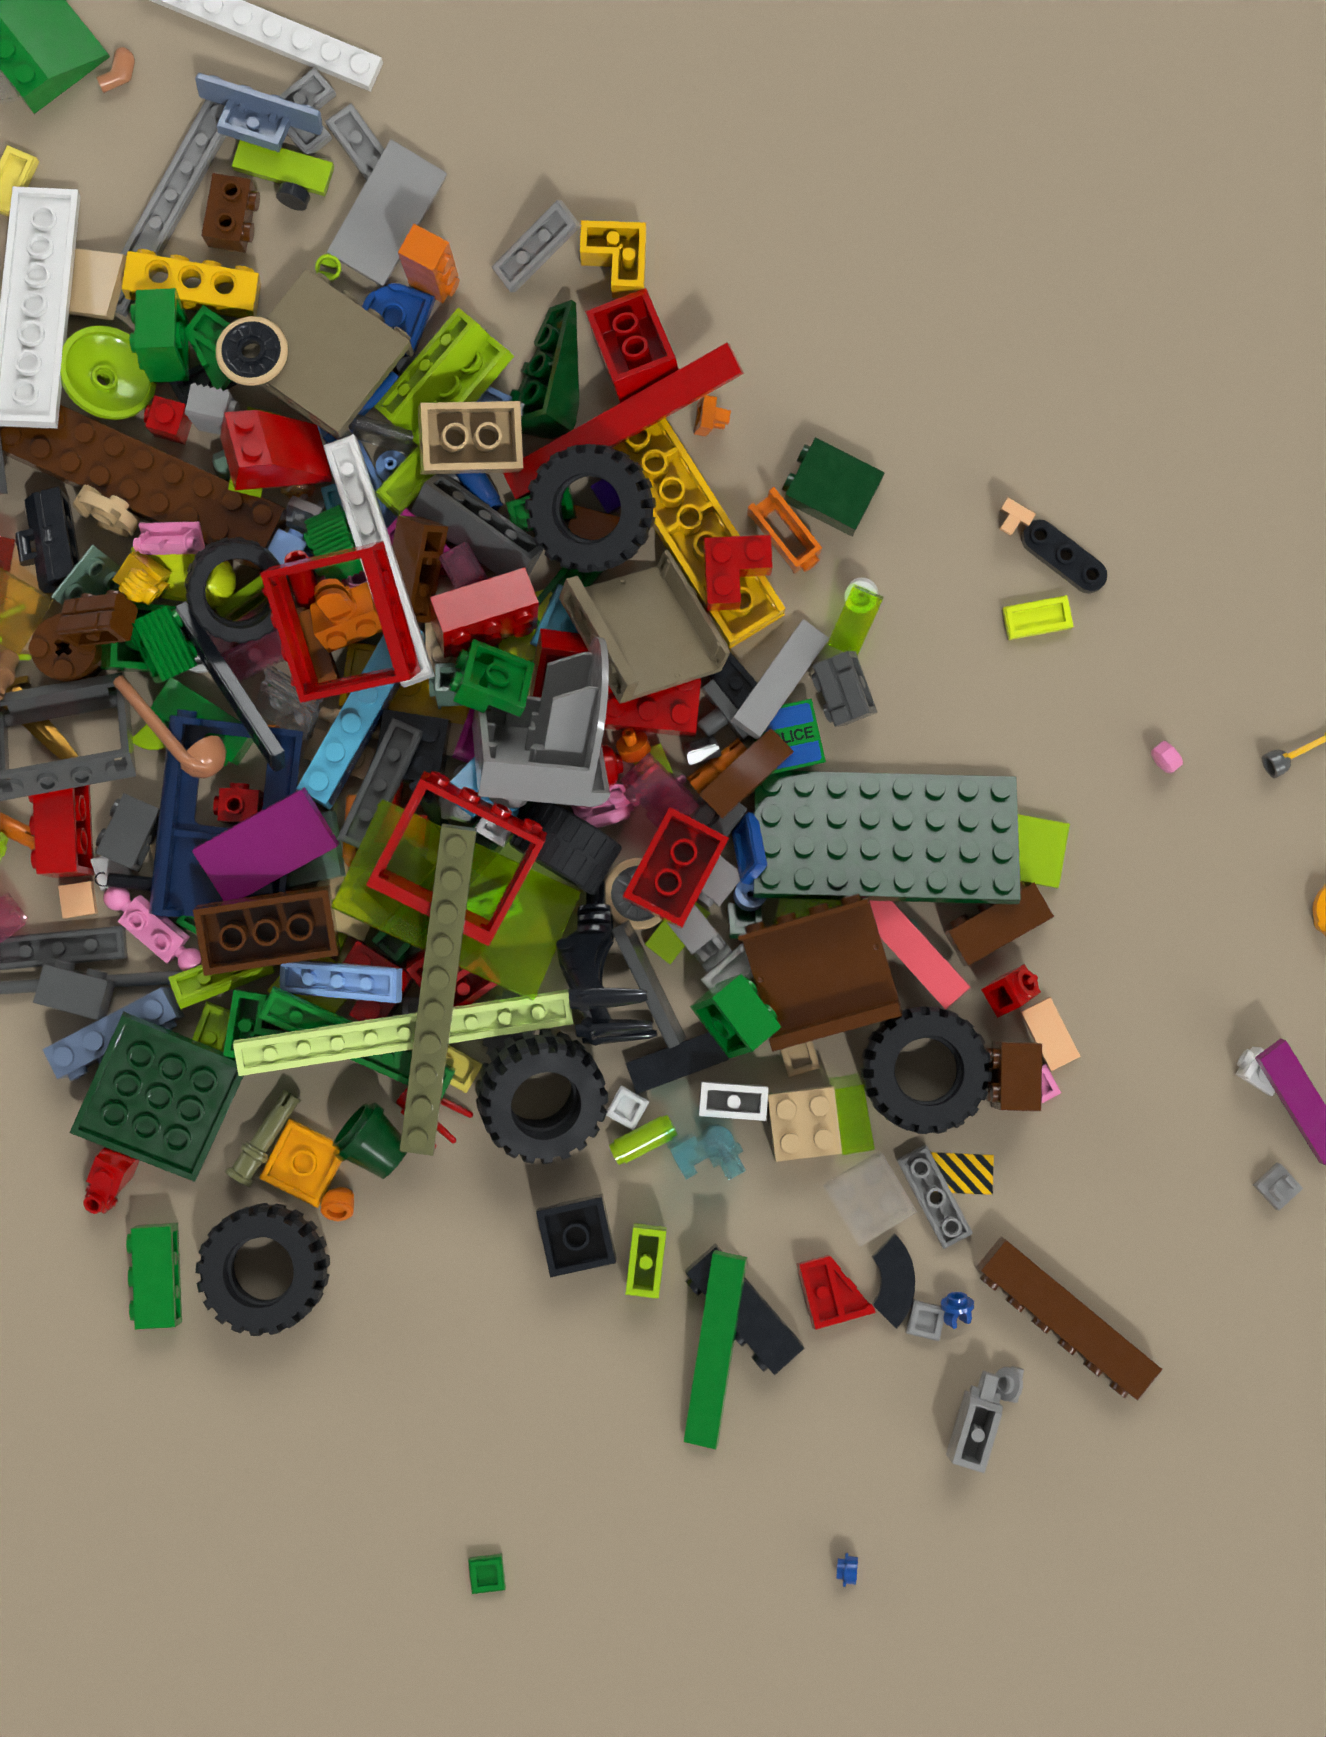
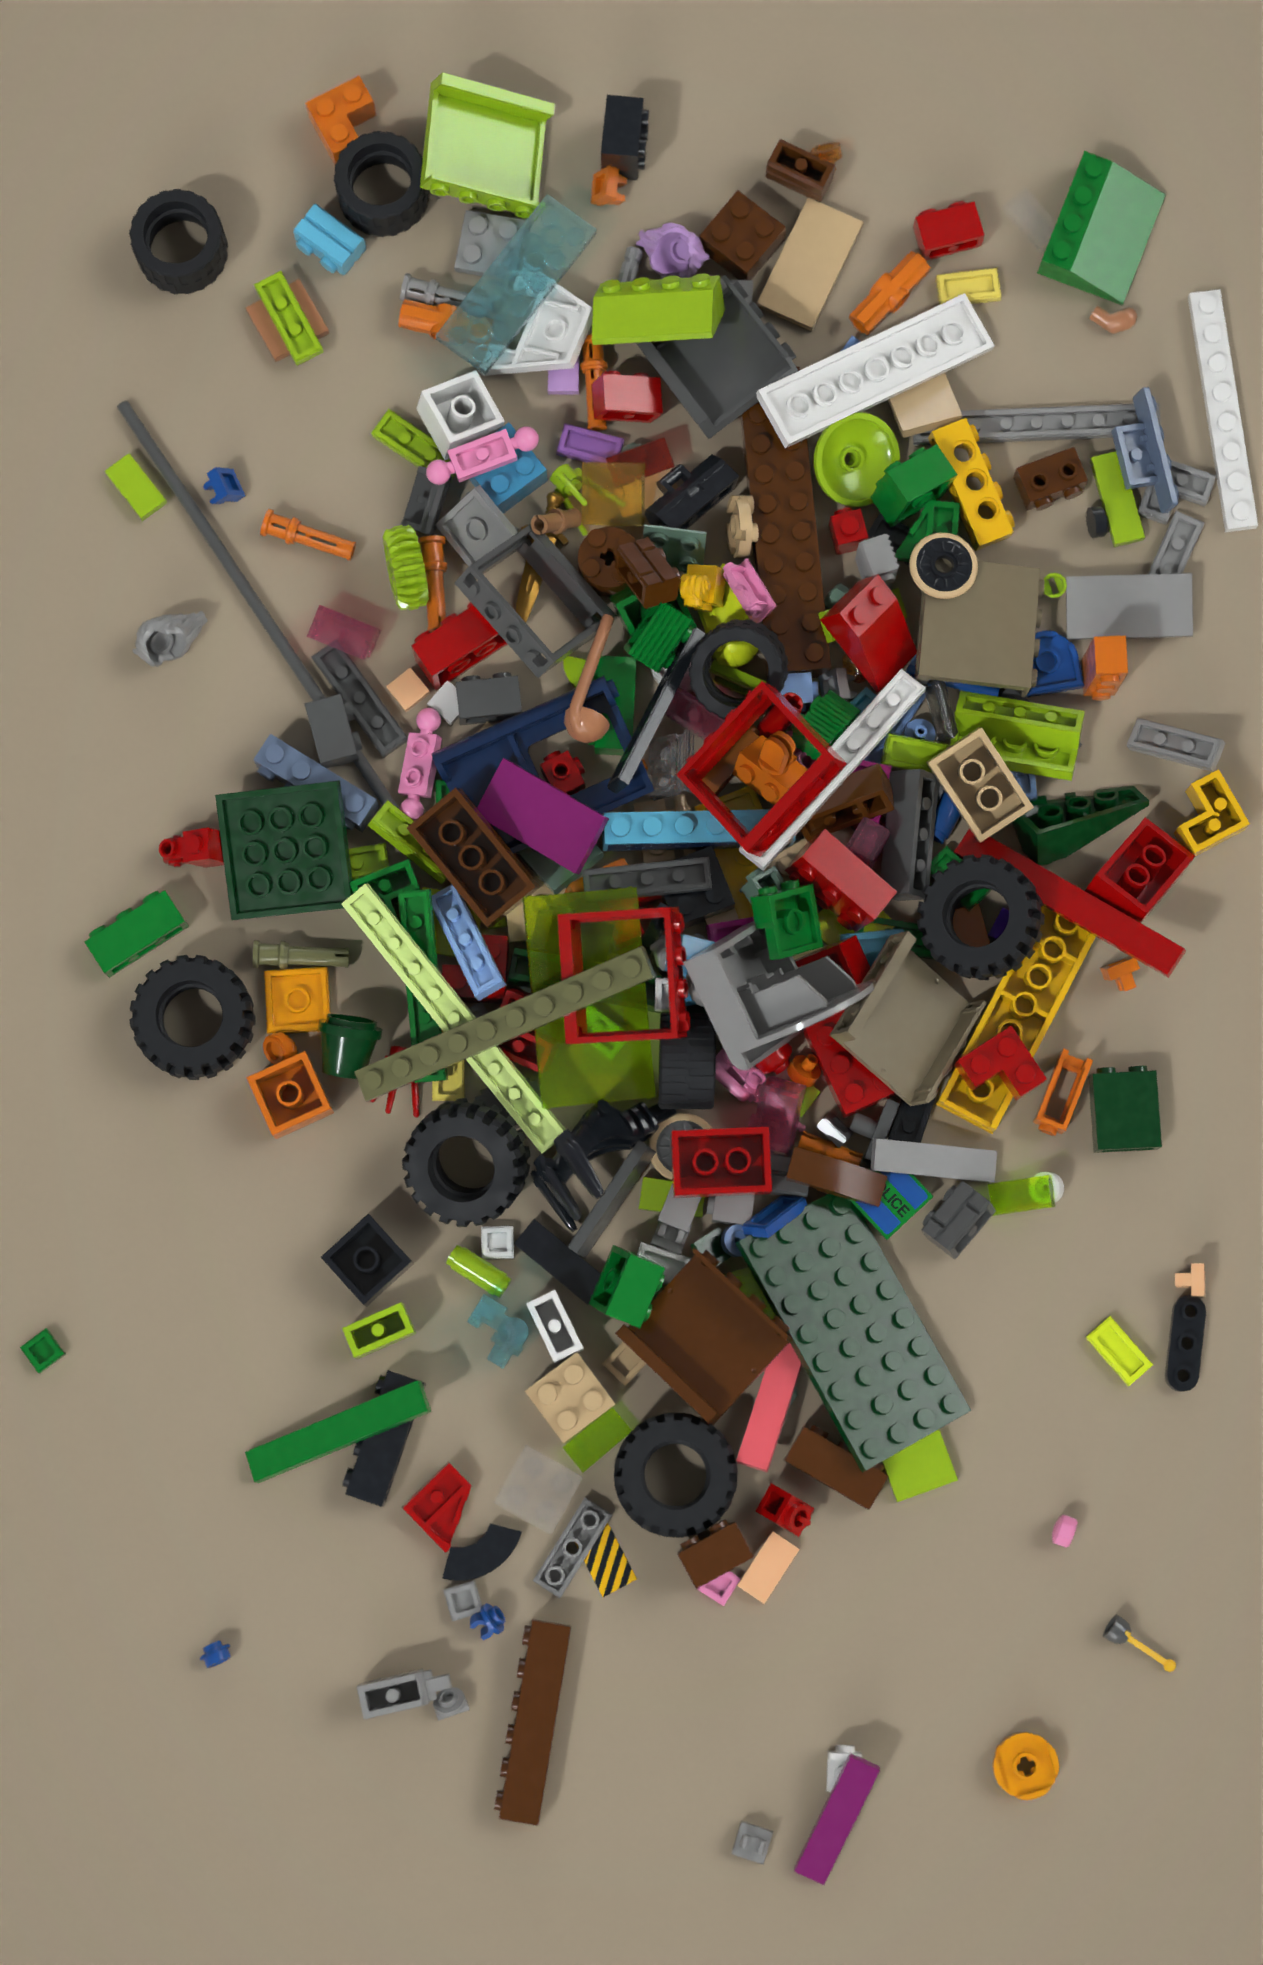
camera: 60 degrees right, 5 degrees down
(127, 881) = (447, 721): black piece -> none
(386, 1220) = (290, 1095): none -> orange brick

